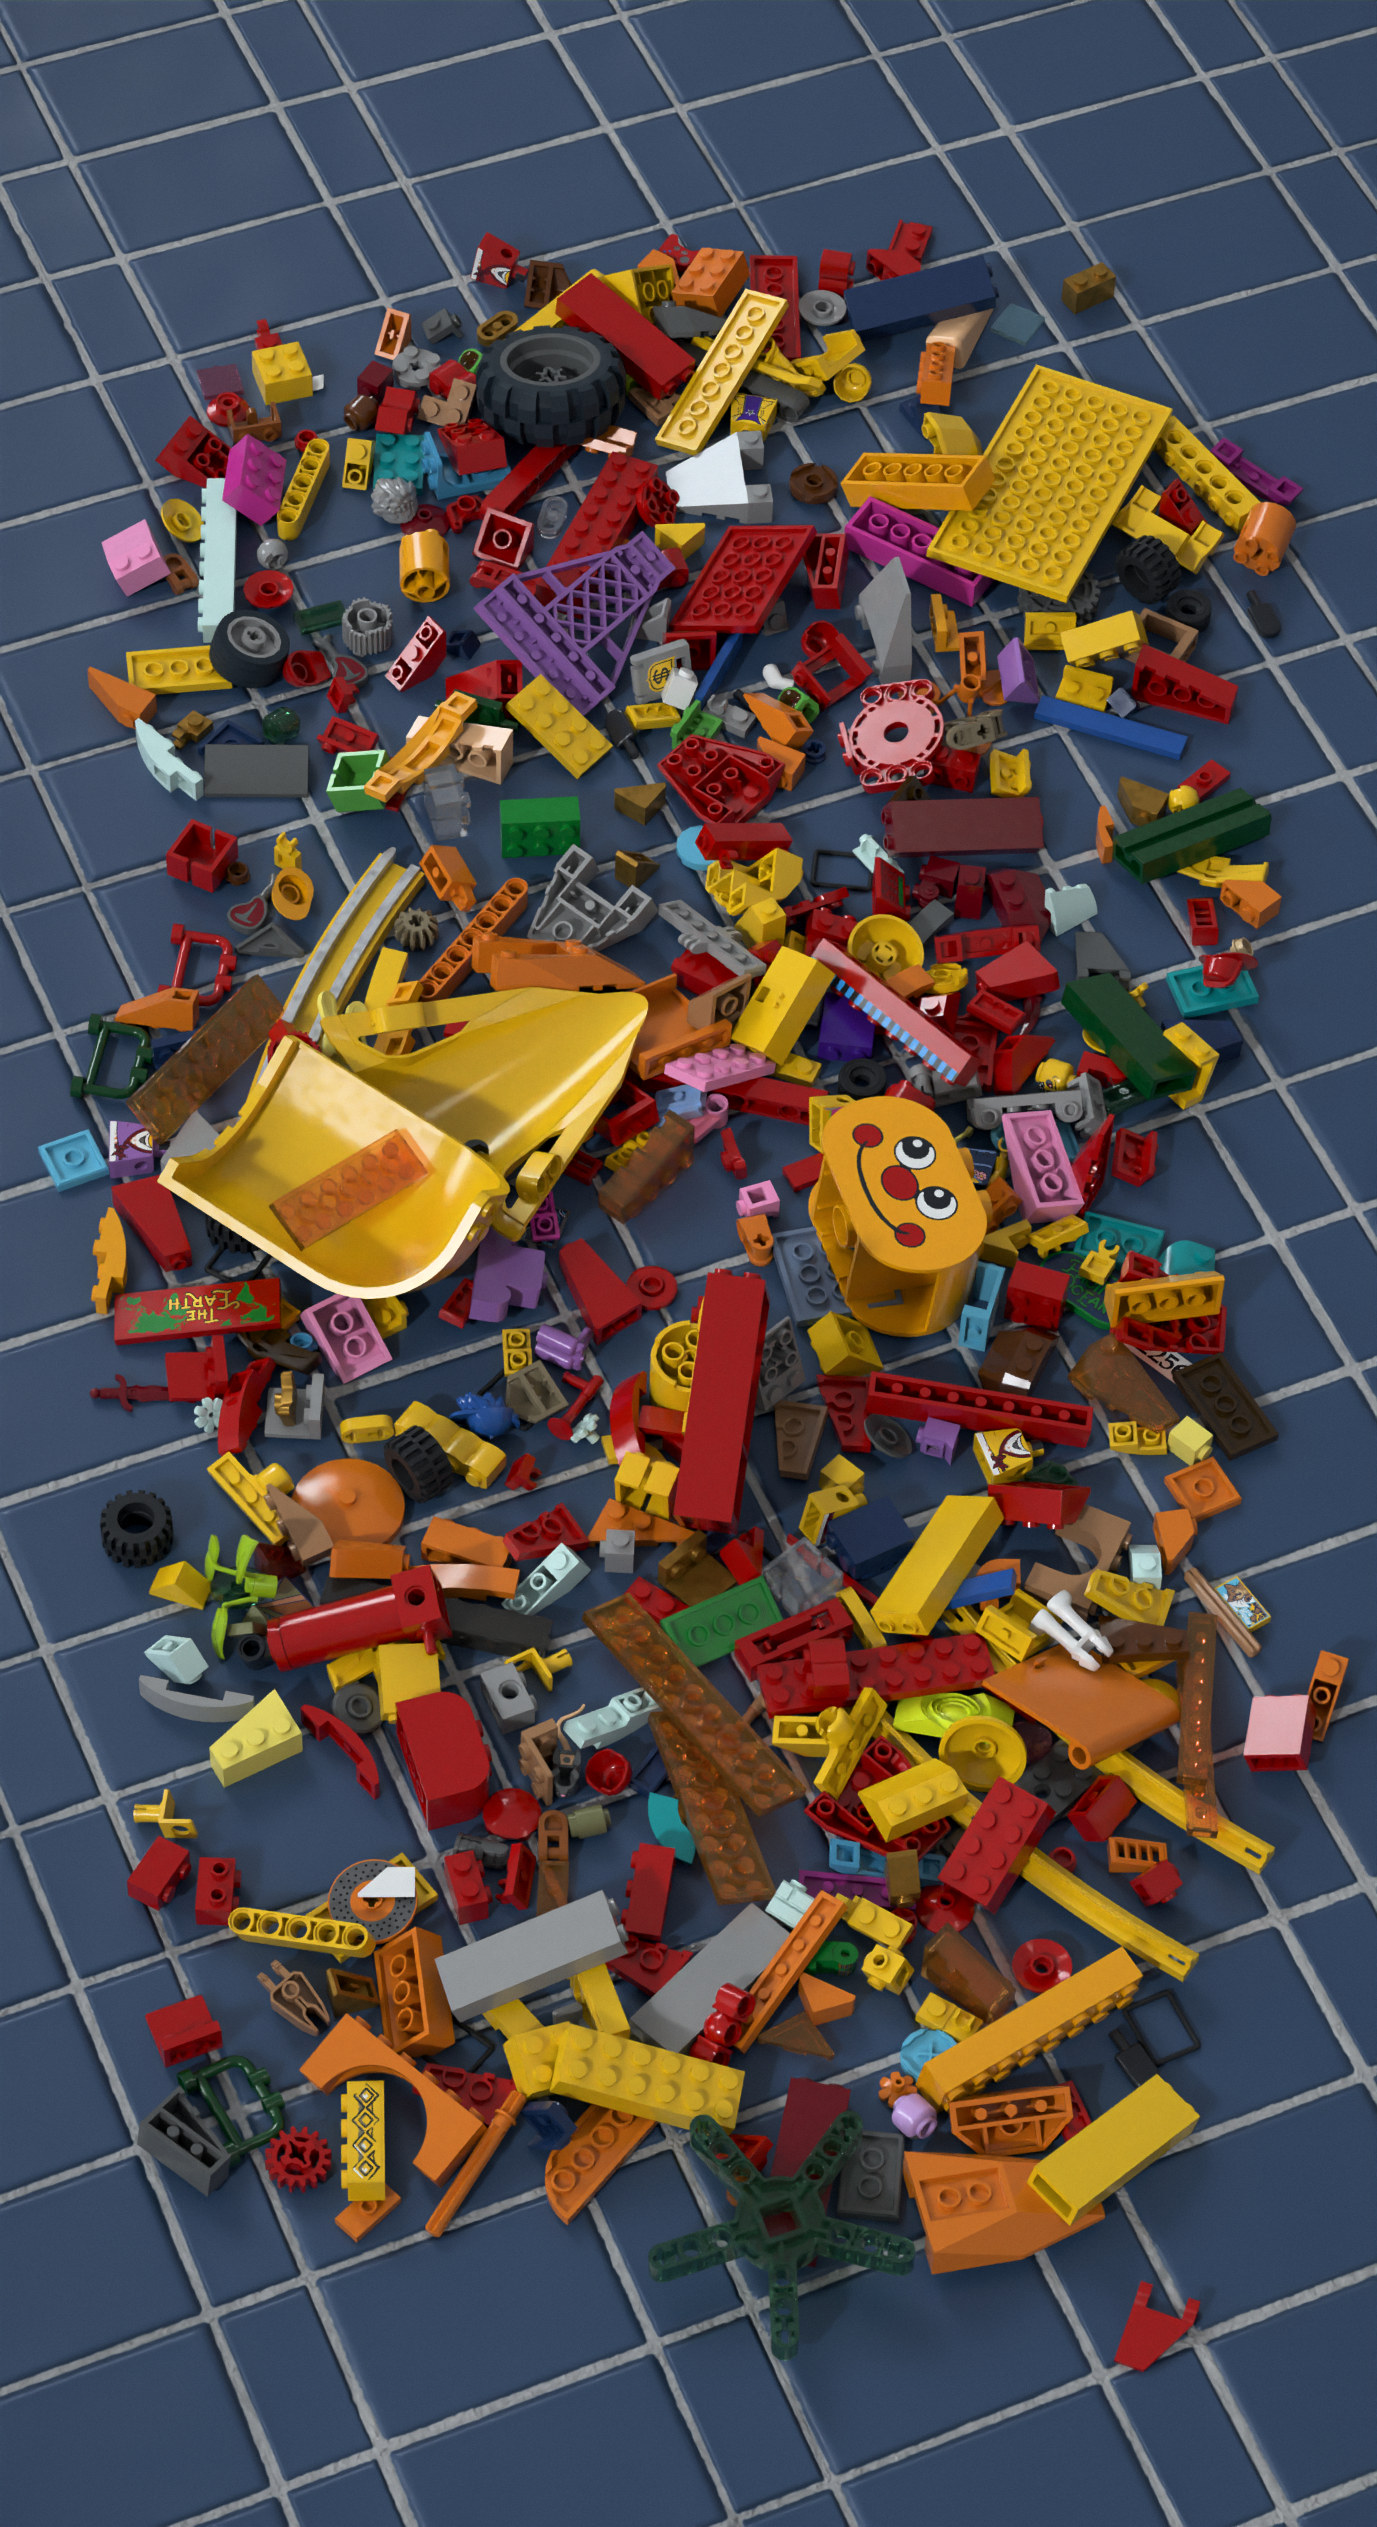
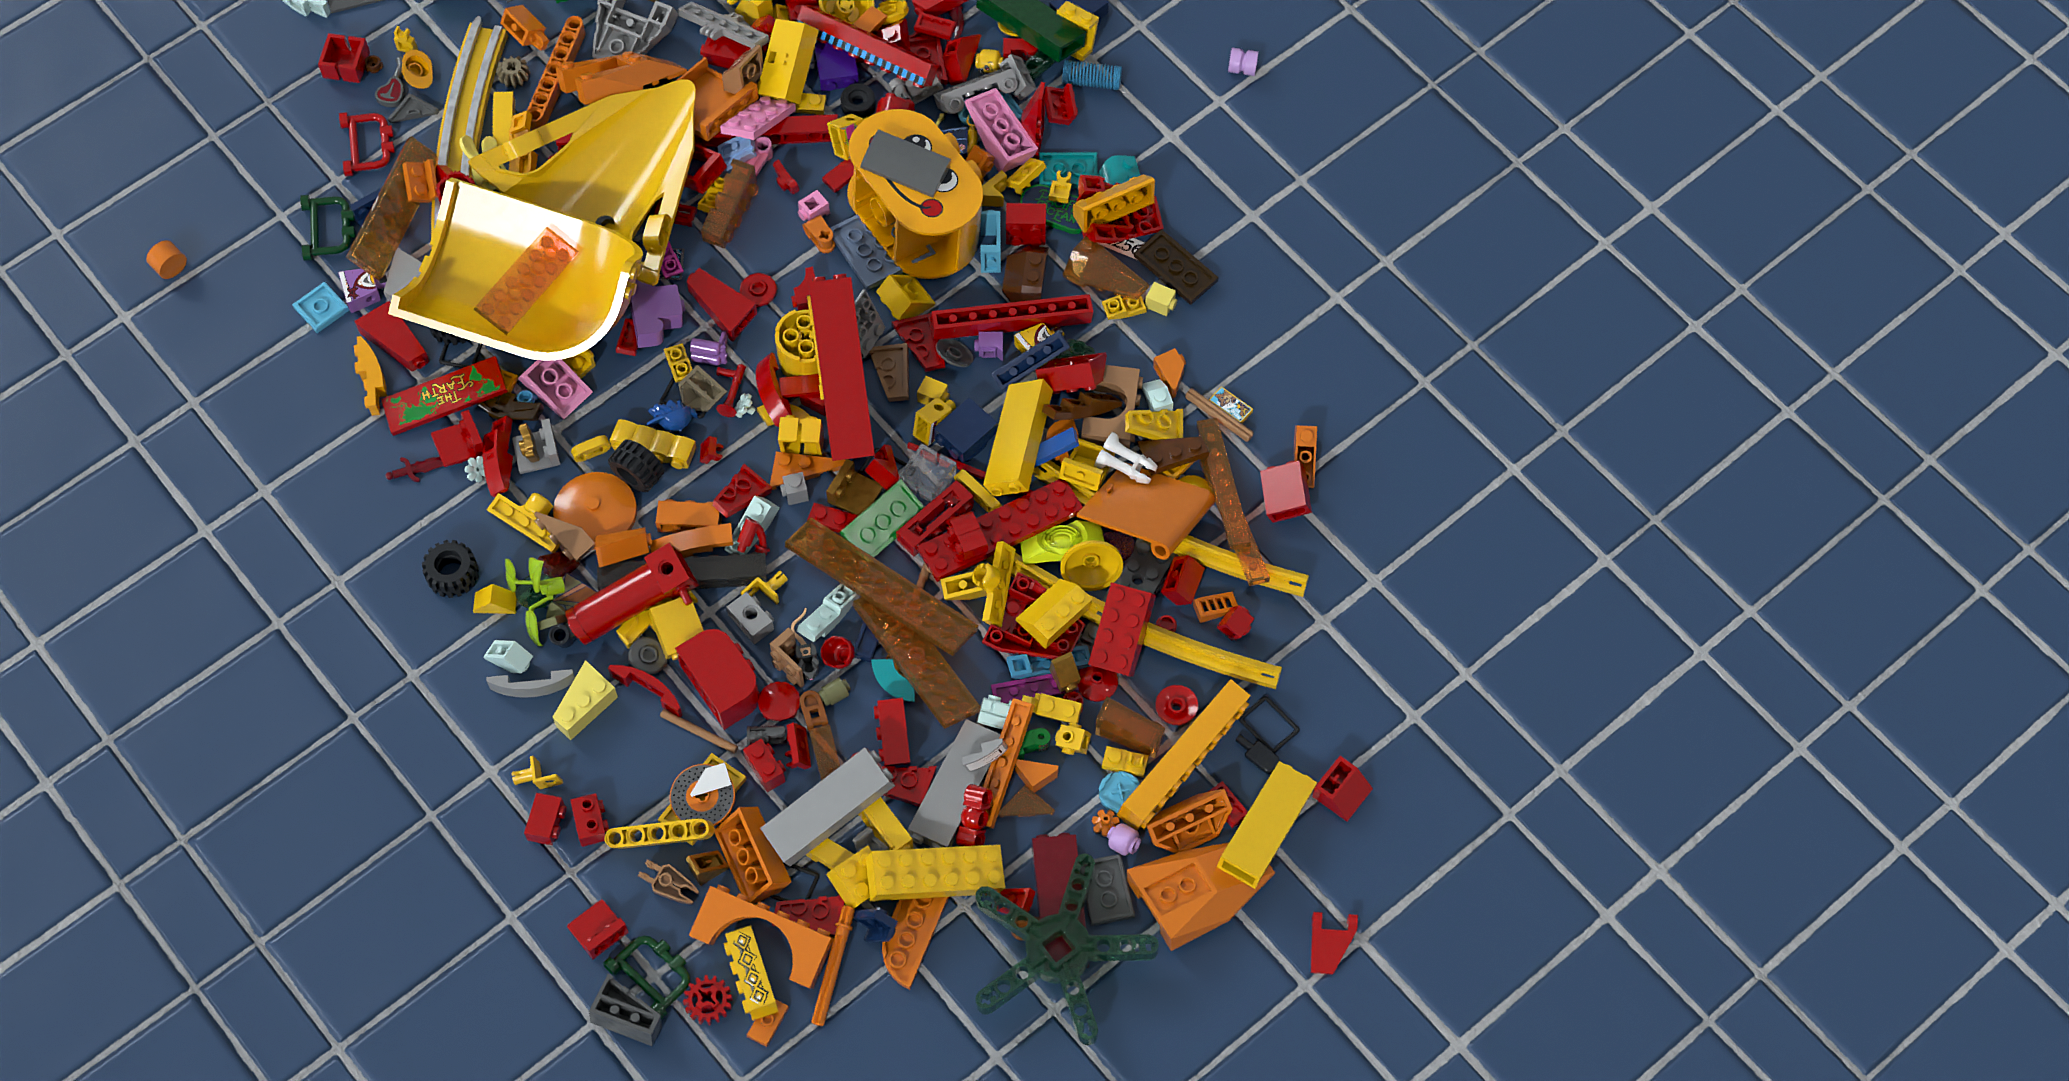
camera: 15 degrees left, 10 degrees up
(165, 1009) = (352, 178): orange slope -> none
(251, 1034) = (420, 181): none -> orange bracket
(394, 1822) = (699, 731): none -> medium nougat bar
(537, 1589) = (747, 535): none -> red plant
(769, 1950) = (990, 752): none -> light grey slope
(893, 1169) = (905, 163): none -> dark grey slope
(986, 1470) = (1030, 360): none -> dark blue slope
(1041, 1550) = (1085, 406): none -> reddish brown slope
(1187, 1123) = (1066, 76): none -> dark azure piece
(1203, 1489) = (1179, 330): orange tile -> none
(1232, 2135) = (1342, 788): none -> red slope

